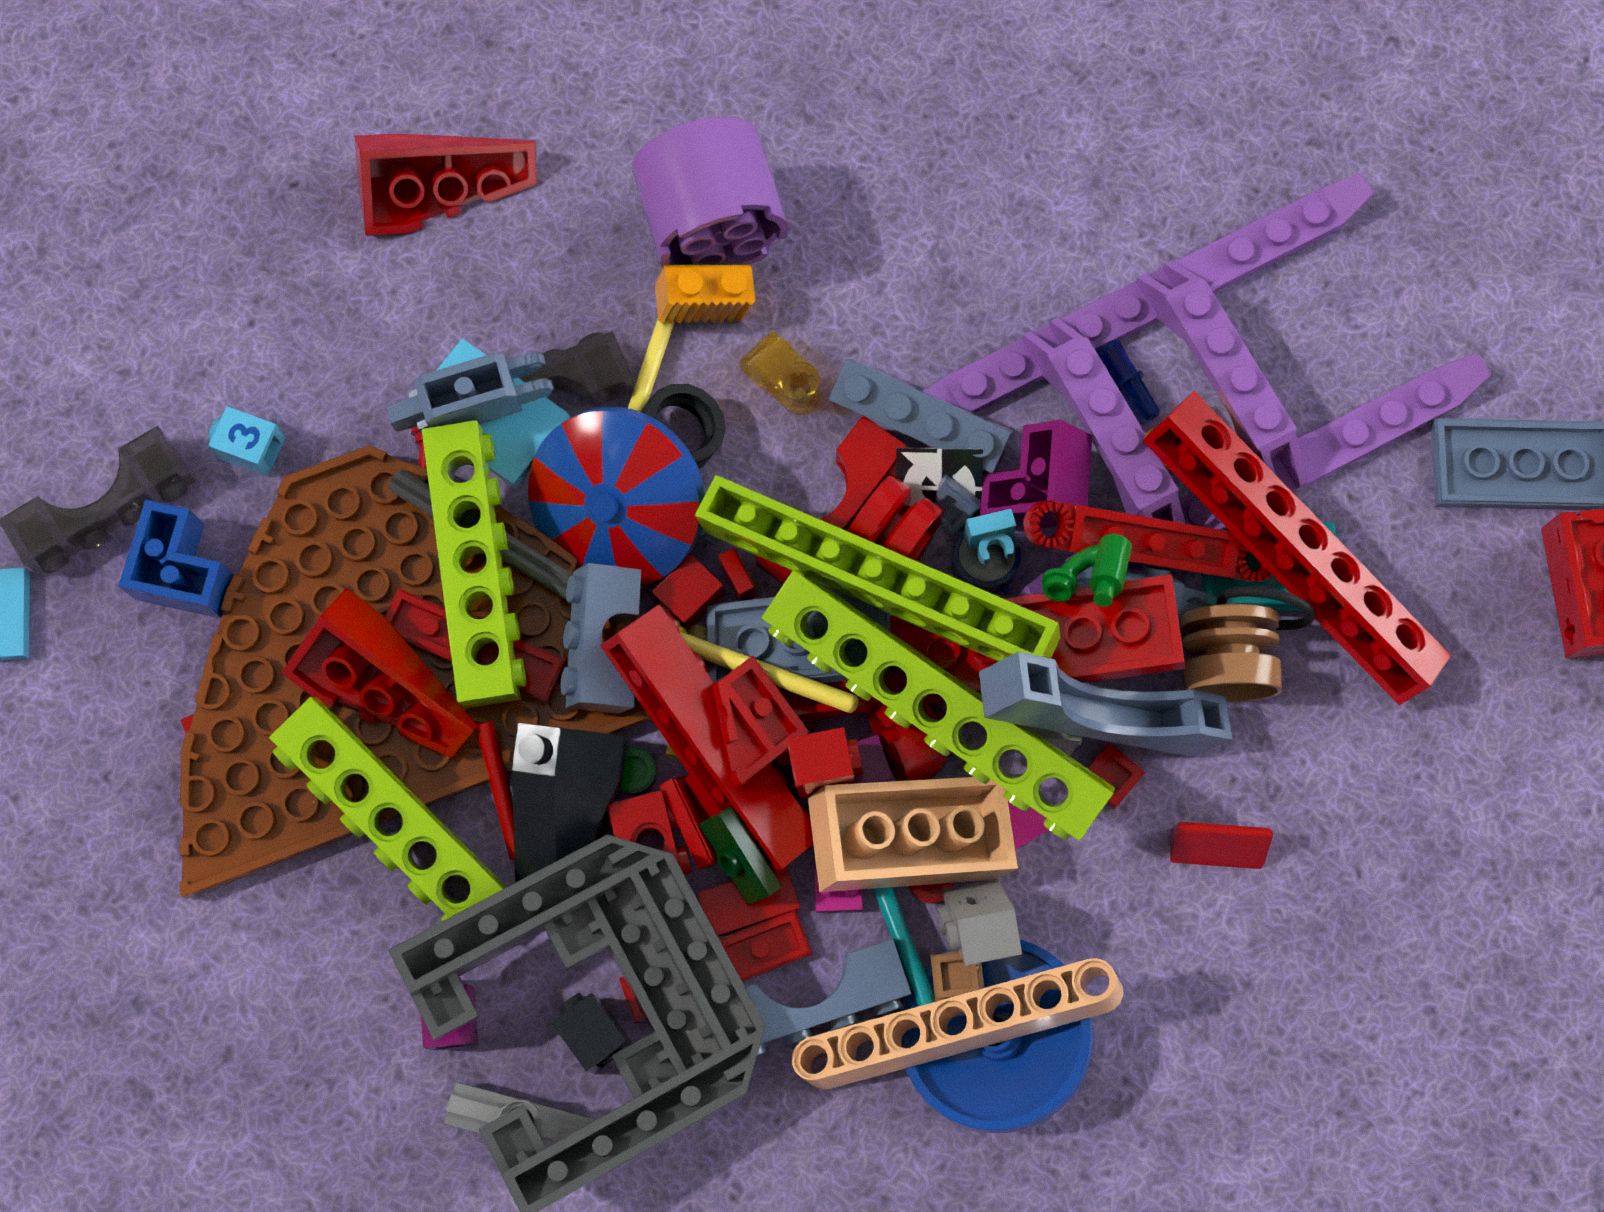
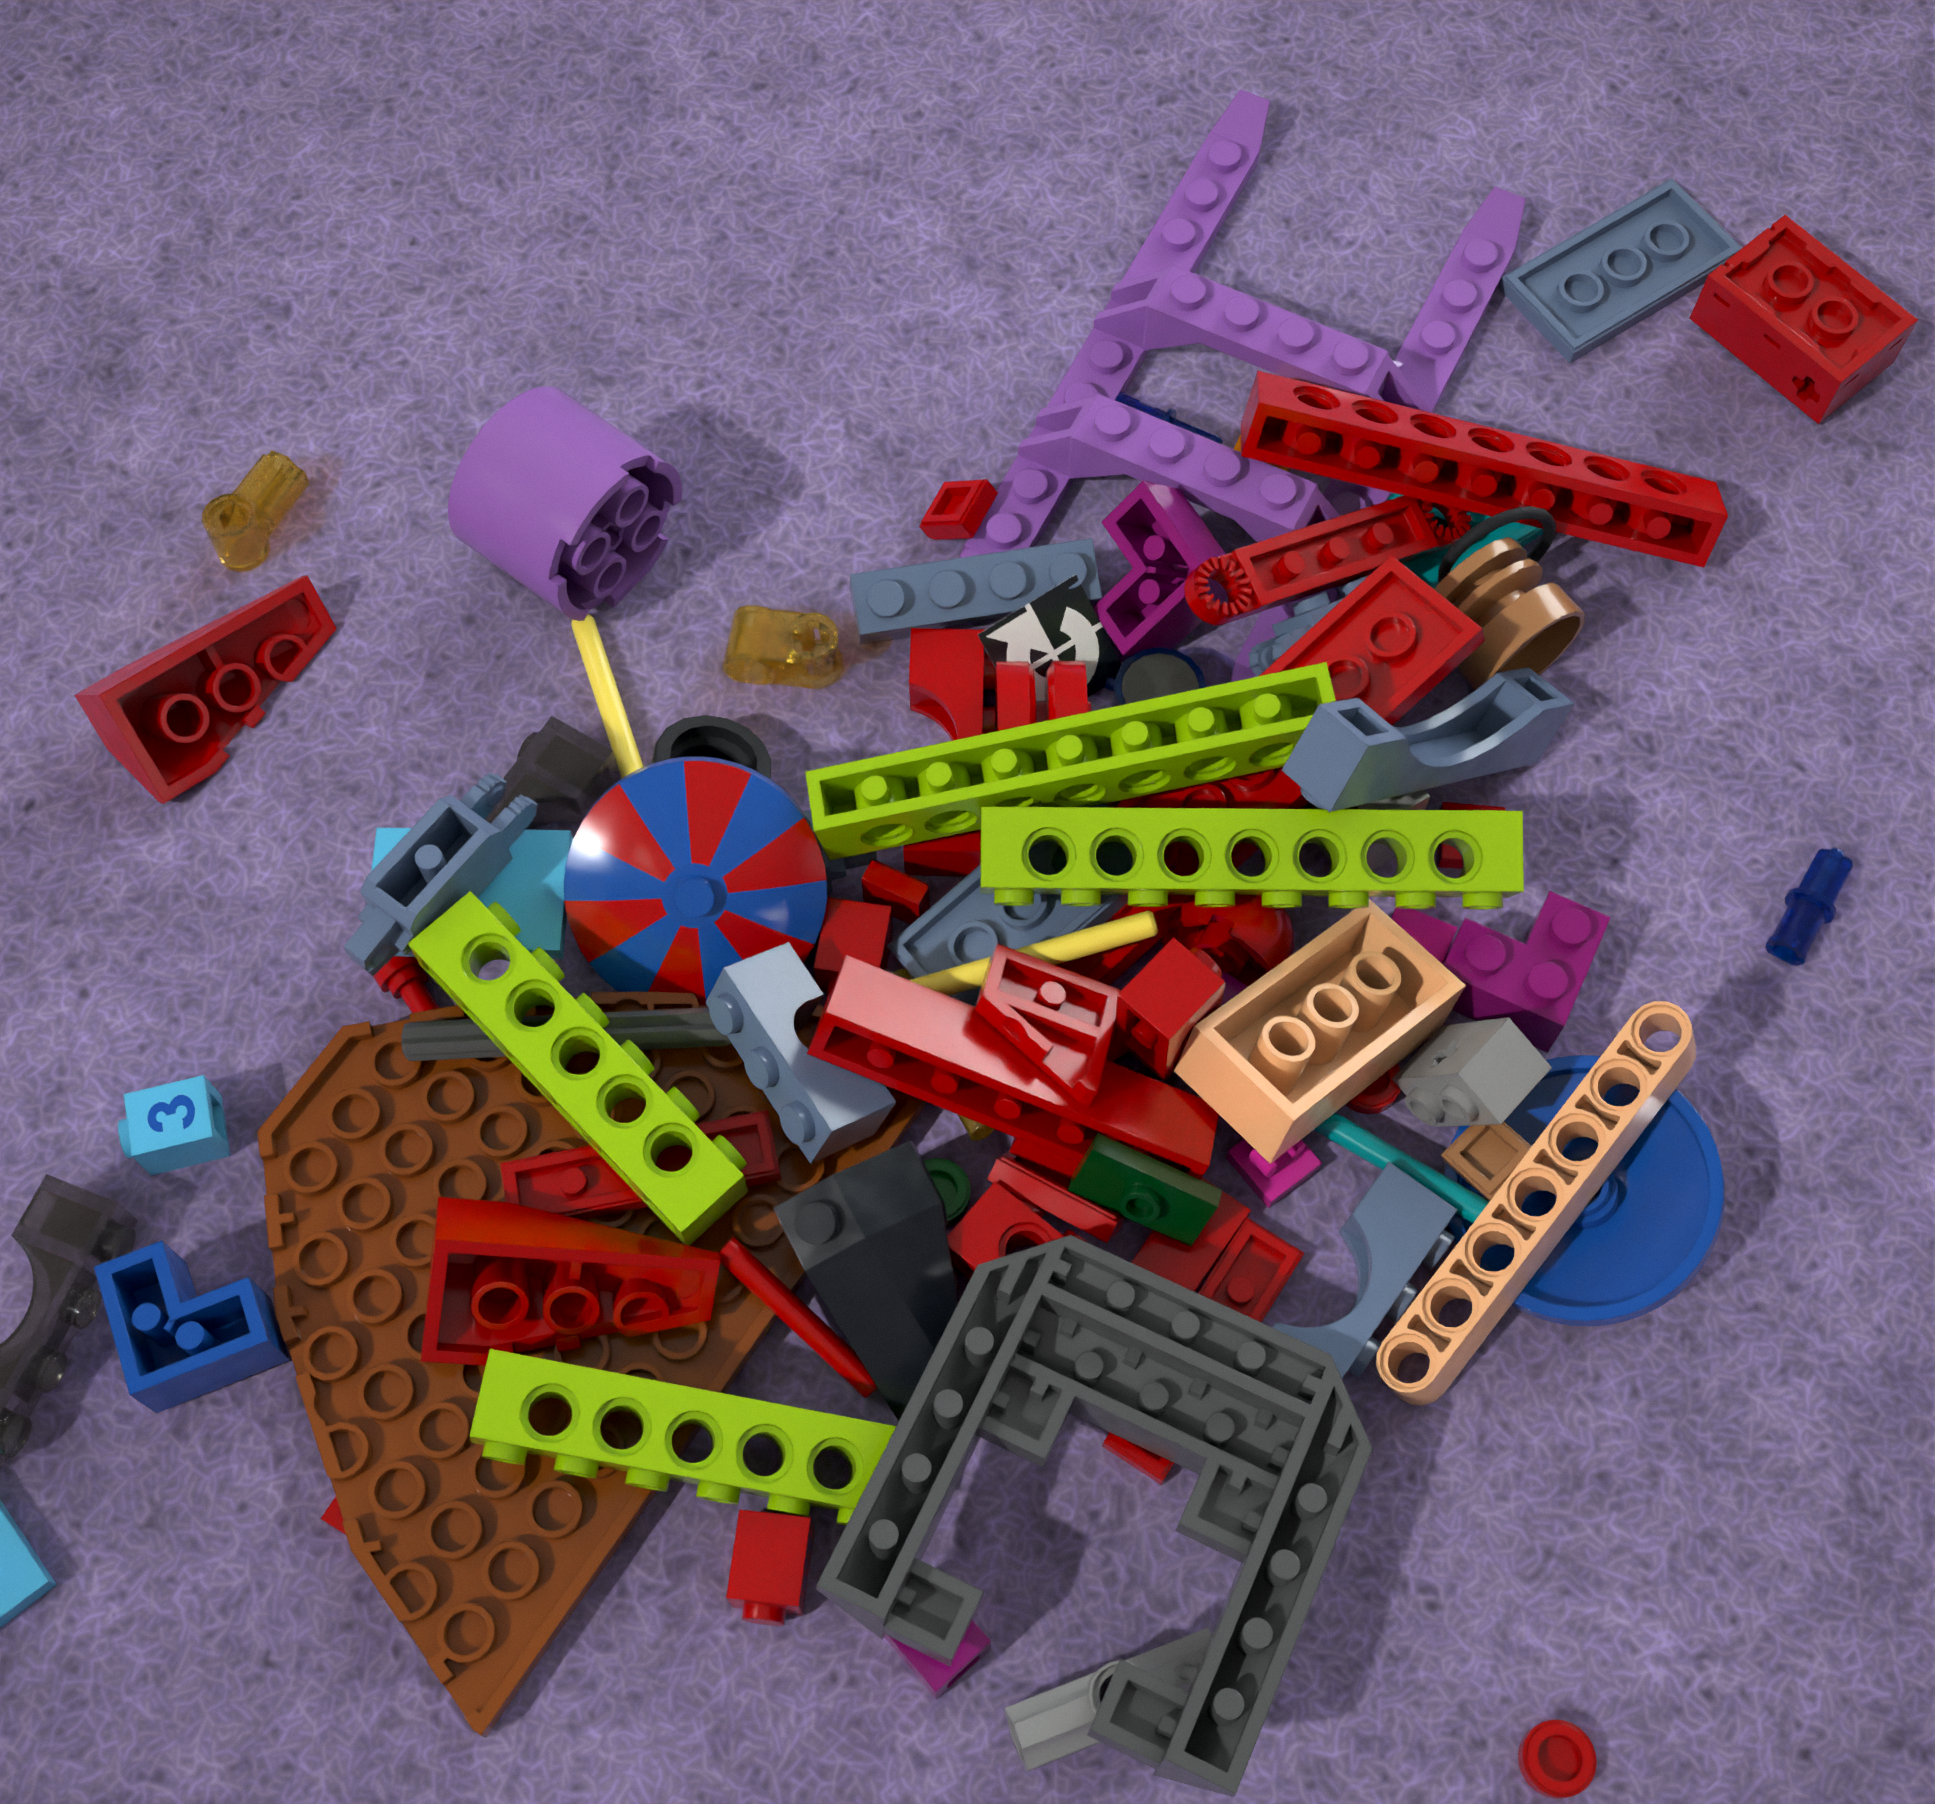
camera: 35 degrees left, 10 degrees down
(389, 916) = (770, 1566): none -> red brick
(537, 73) = (247, 517): none -> clear yellow piece
(590, 1031) = (1128, 1518): black brick -> none
(704, 293) = (629, 614): light orange brick -> none
(957, 351) = (958, 509): none -> red tile
(958, 504) = (1094, 651): sand blue tile -> none
(989, 530) = (1149, 652): medium azure tile -> none
(1069, 893) = (1528, 980): none -> magenta brick
(1109, 564) = (1324, 594): green plant -> none
(1219, 845) = (1642, 828): red slope -> none
(1286, 963) = (1810, 906): none -> clear blue axle

